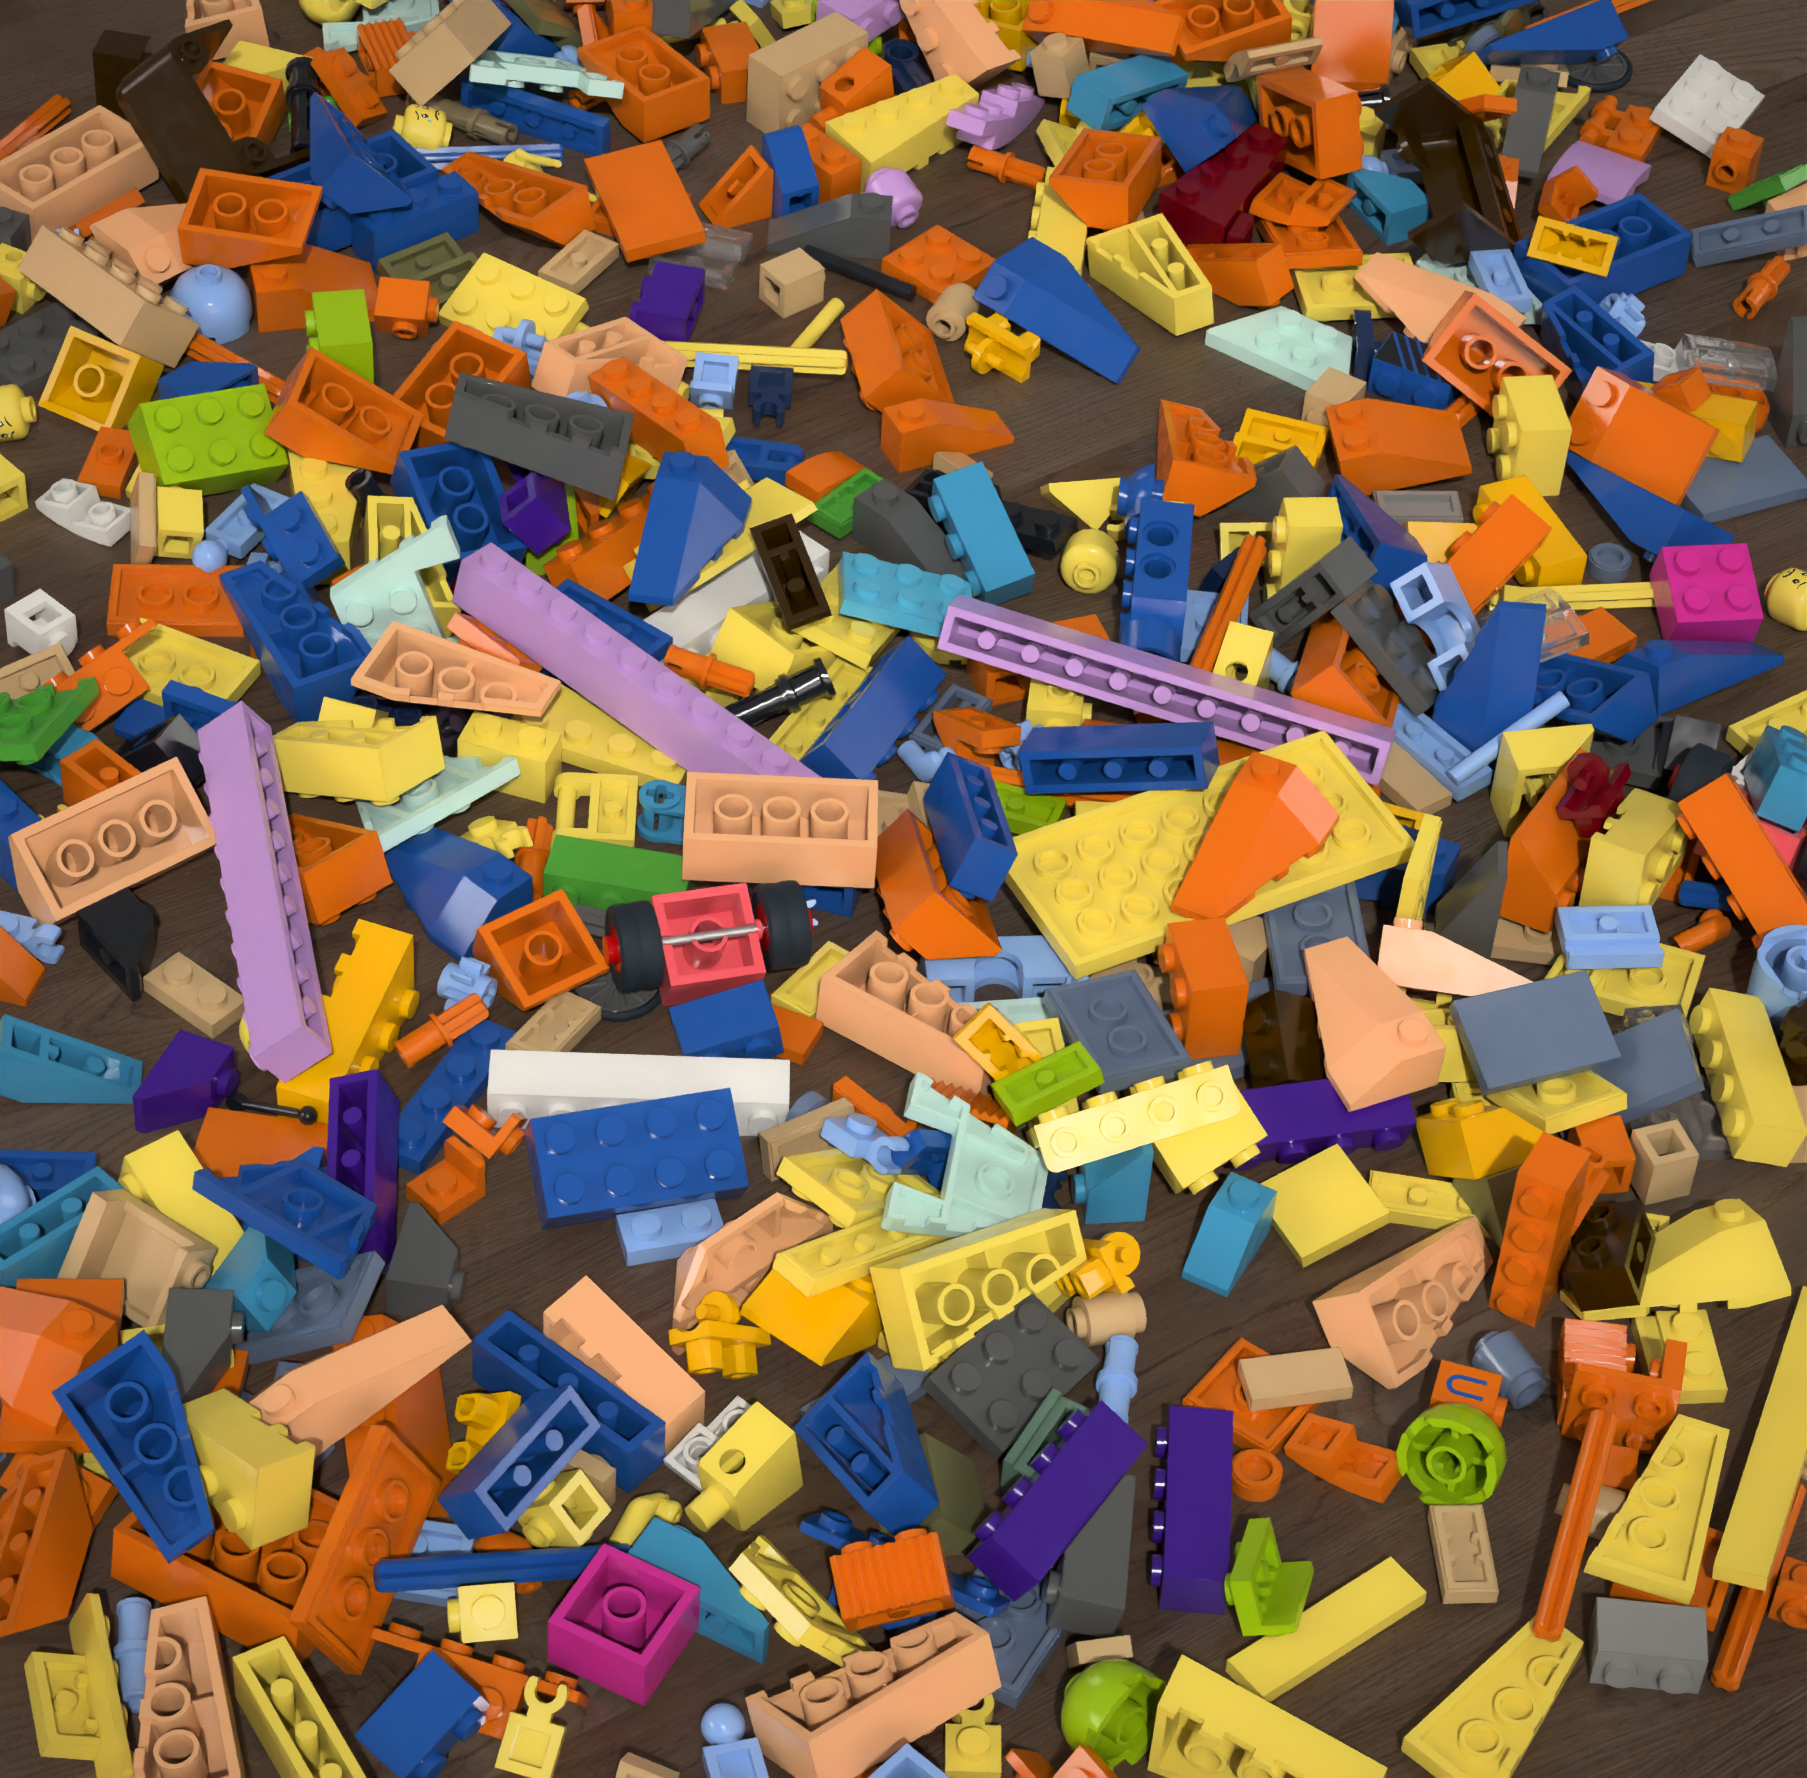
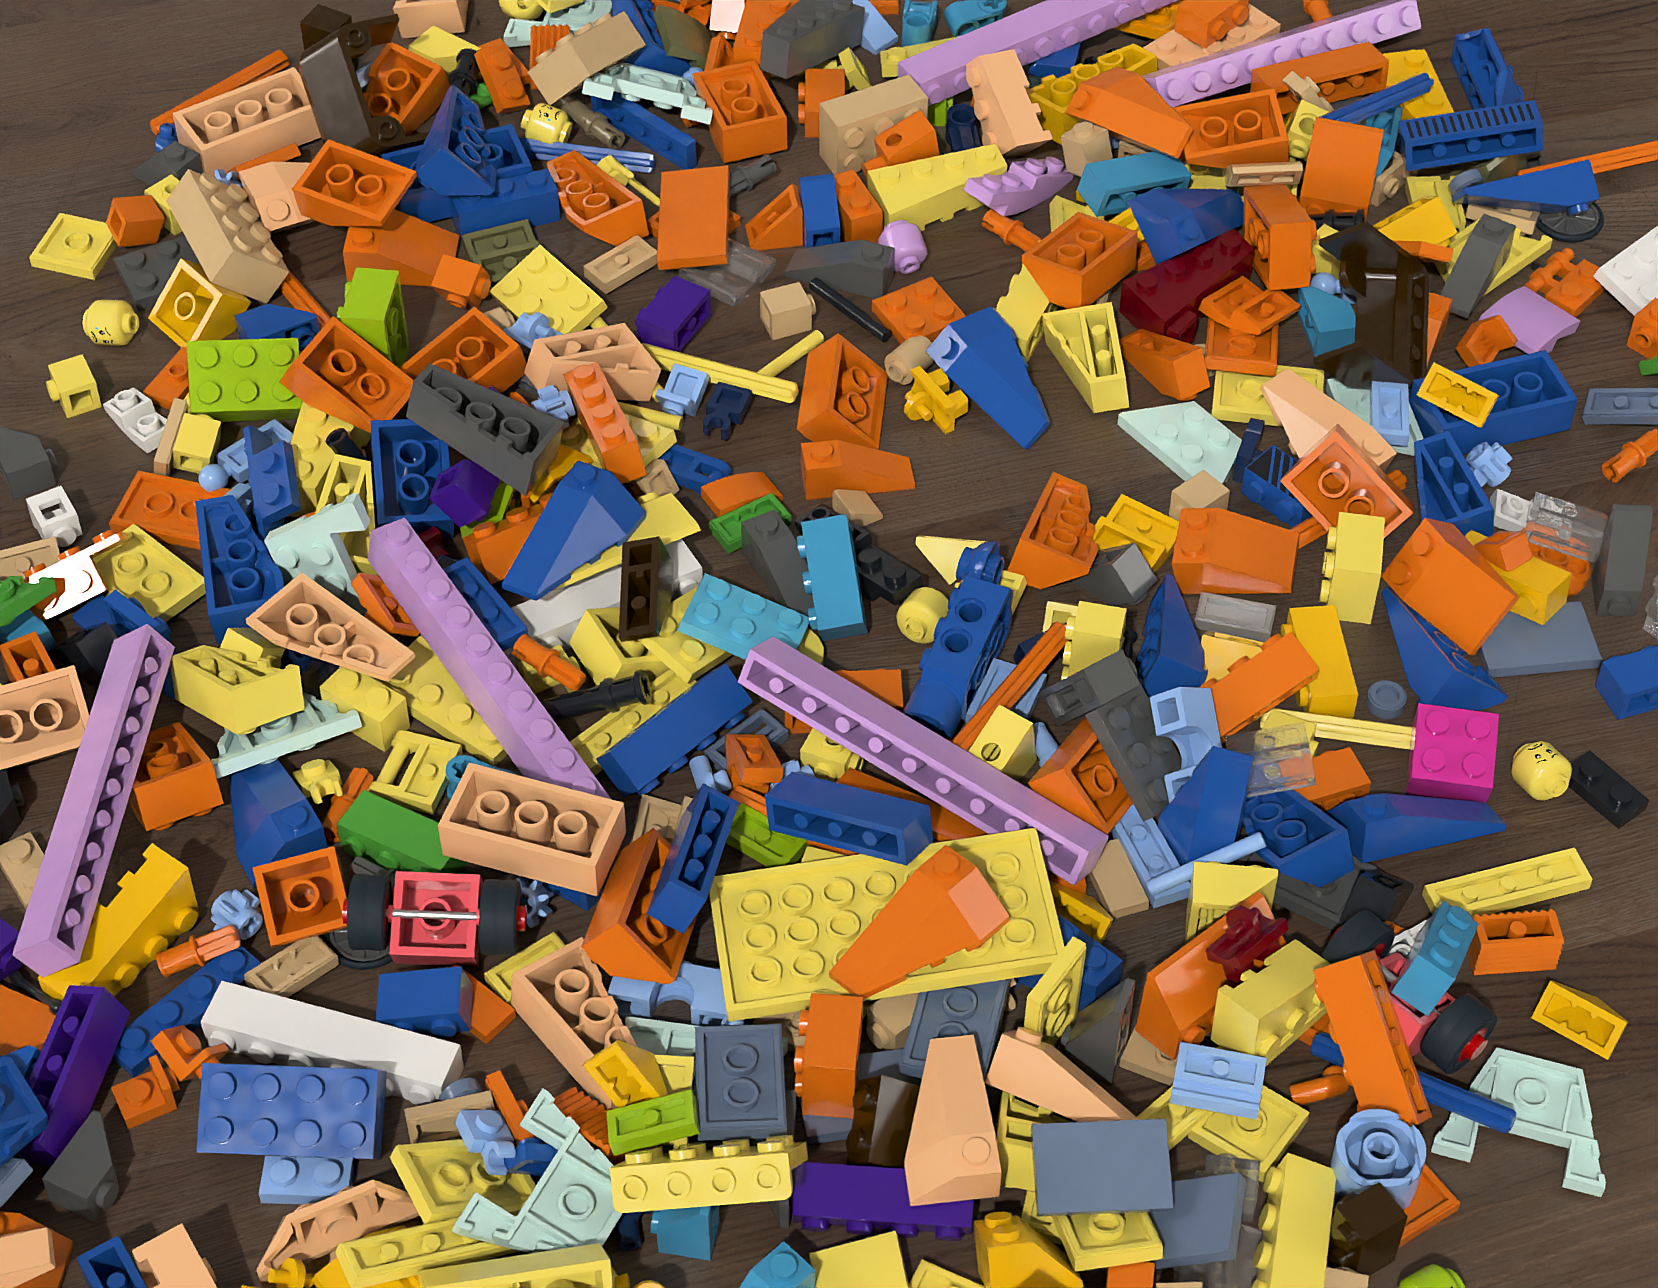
camera: 20 degrees right, 5 degrees up
(216, 301) = (314, 252): light blue cylinder -> none
(1195, 1154) = (755, 1222): light yellow brick -> none

